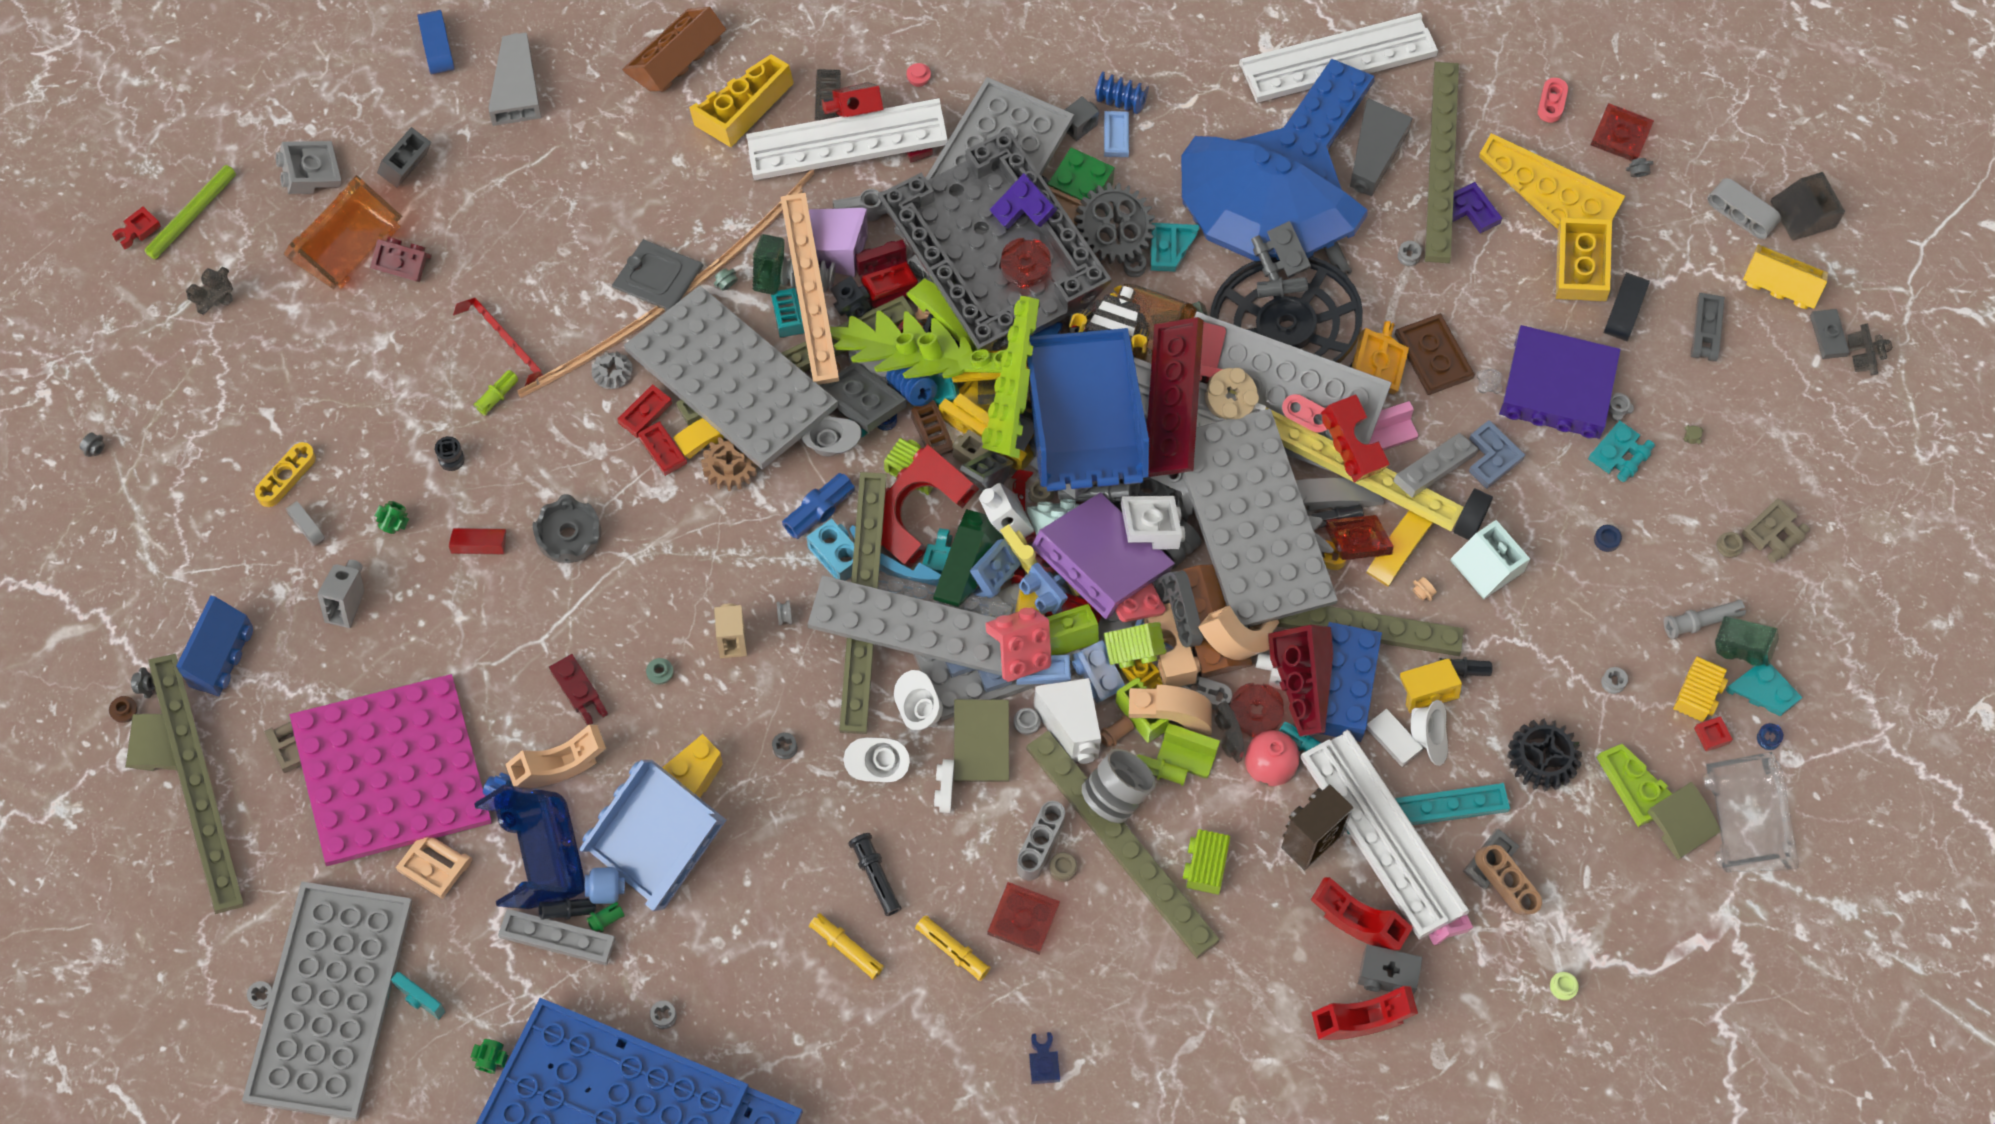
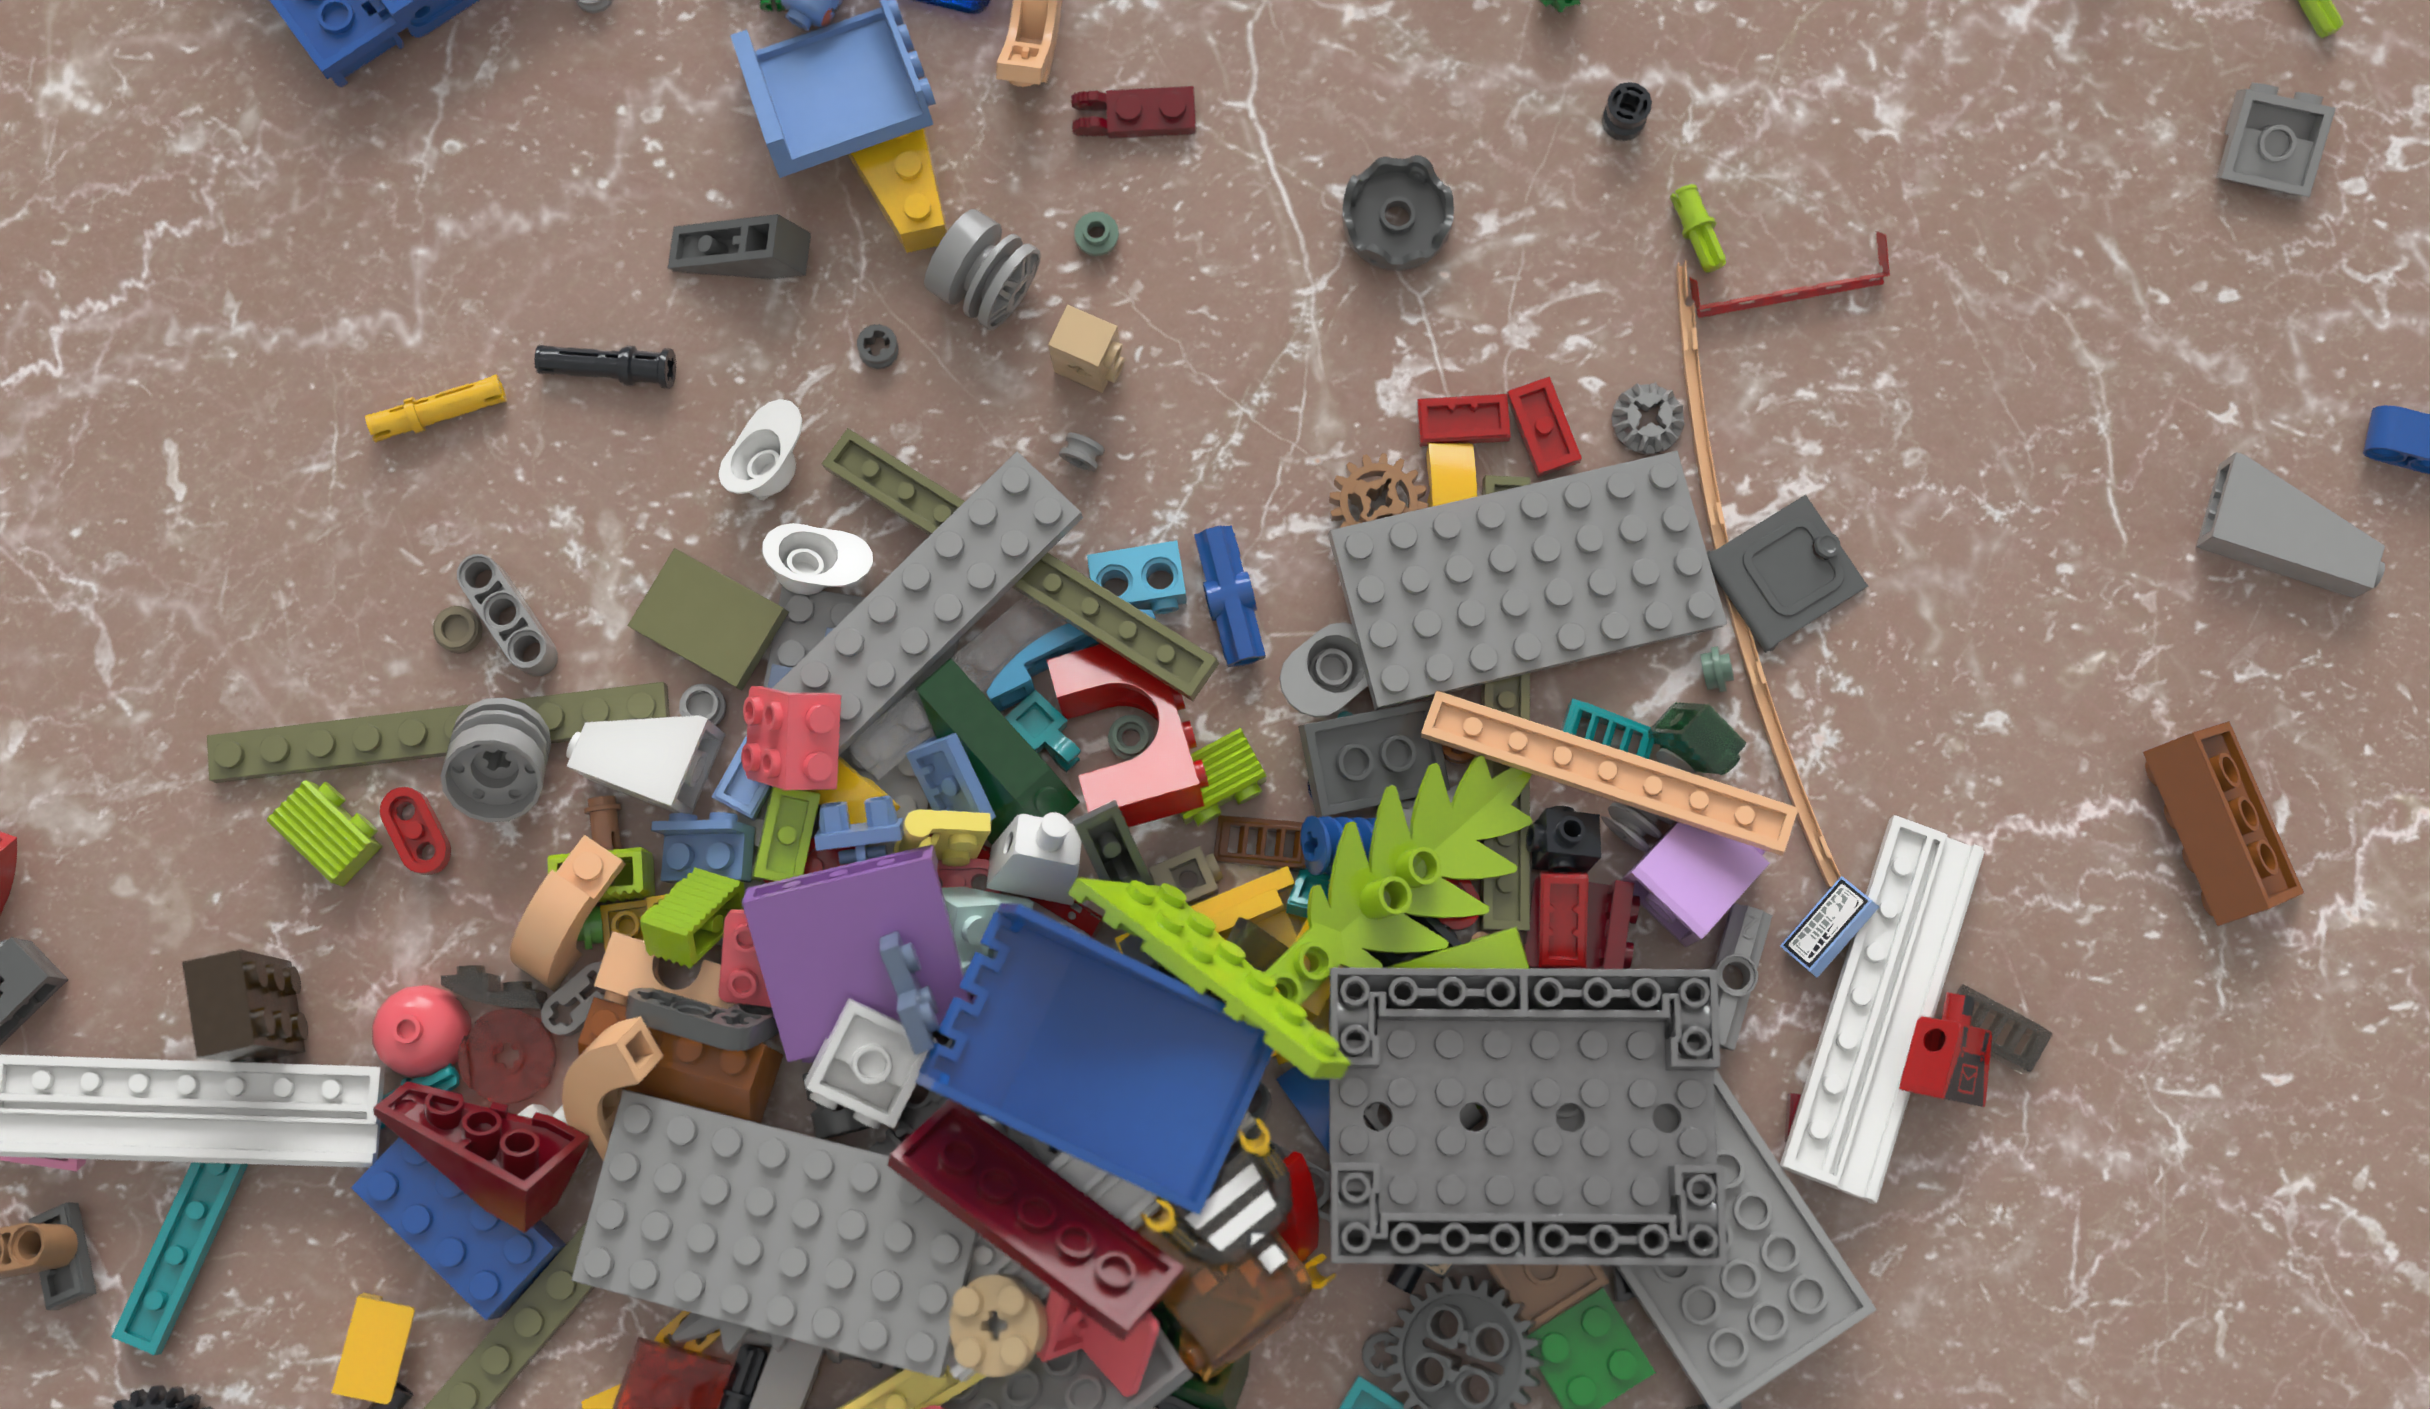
camera: 125 degrees right, 15 degrees up
(344, 234) = (2108, 128): clear orange windscreen -> none
(399, 260) = (2024, 200): bracket -> none
(404, 157) = (2214, 284): dark grey brick -> none
(477, 541) = (1459, 88): red slope -> none
(715, 704) = (982, 269): none -> light grey wheel
(744, 100) = (2050, 876): yellow wedge -> none
(773, 843) = (741, 248): none -> dark grey slope
(823, 176) = (1829, 926): none -> tile
(837, 938) = (530, 269): yellow pin -> none
(917, 508) = (1123, 725): none -> sand green plate
(918, 74) = (1961, 1209): coral plate -> none
(944, 796) = (657, 518): white plate -> none
(1021, 198) = (1566, 1208): dark purple plate -> none
(1023, 918) = (414, 527): clear red plate -> none
(1025, 275) = (1466, 1118): clear red plate -> none
(1043, 1064) = (206, 440): clear blue plate -> none
(1110, 508) = (914, 1004): none -> sand blue plate
(1165, 770) = (507, 854): lime axle -> none
(1177, 821) = (417, 832): none -> red plate
(1188, 750) = (497, 915): lime panel -> none
(1362, 922) = (93, 1001): red arch -> none
(1394, 737) = (336, 1240): white tile -> none
(1429, 730) = (301, 1296): white piece -> none

